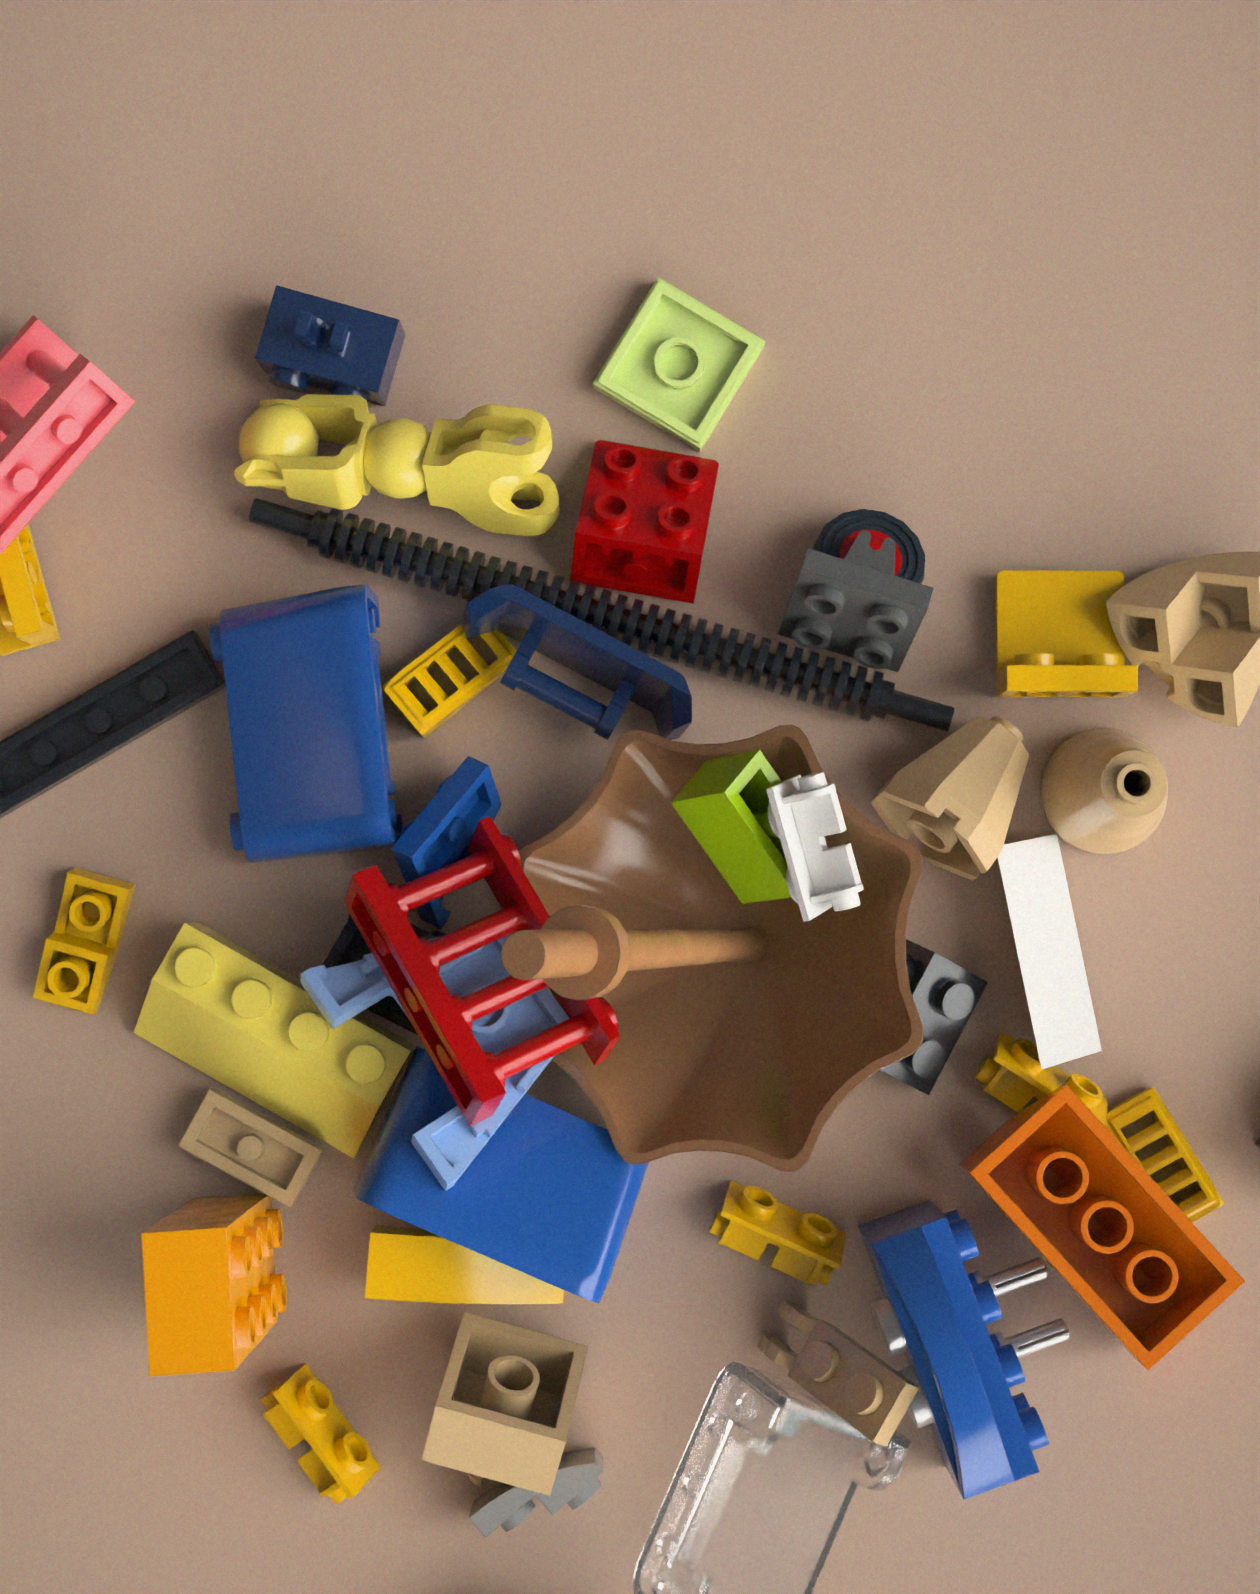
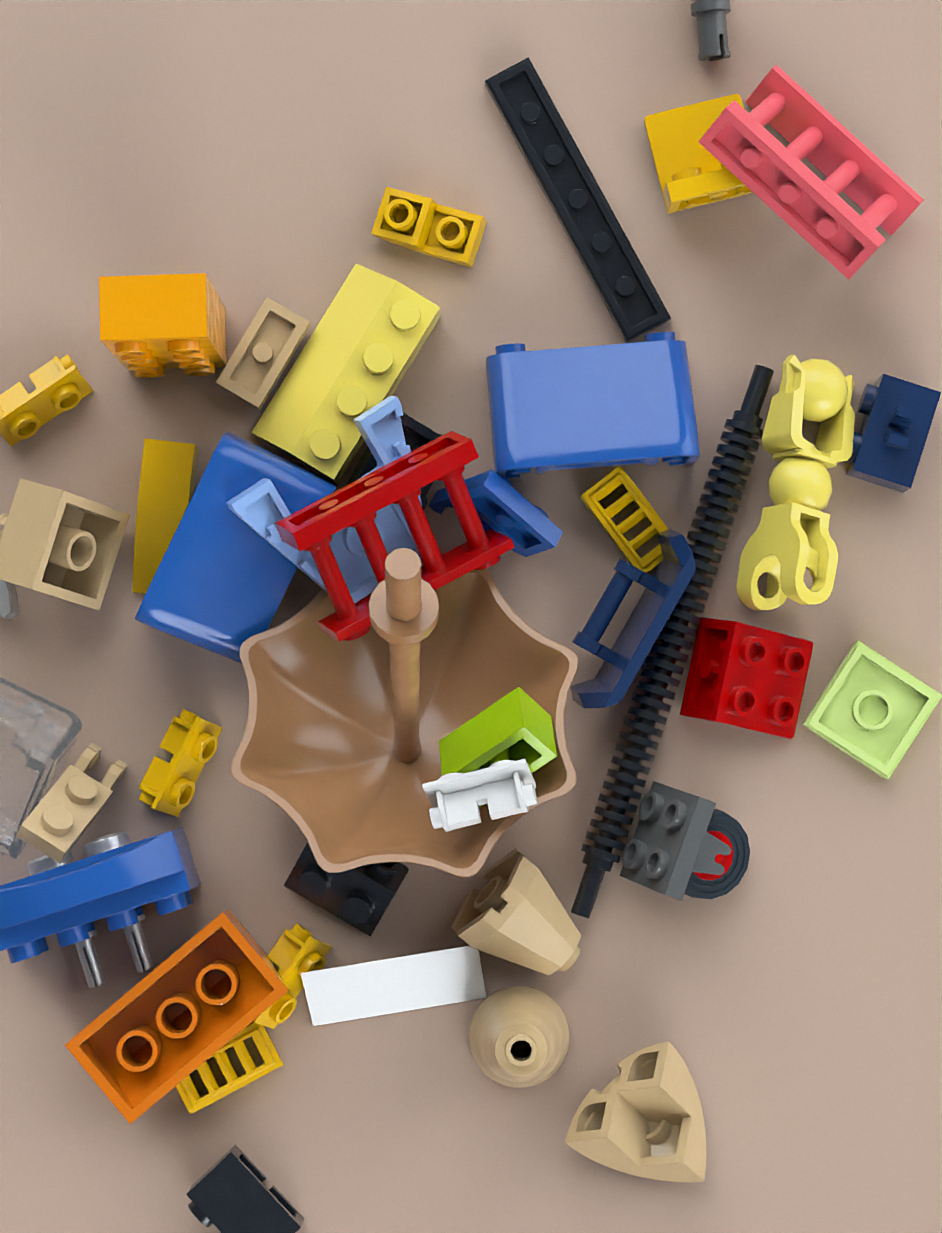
camera: 90 degrees right, 0 degrees up
(1059, 636) = (644, 1004): yellow bracket -> none

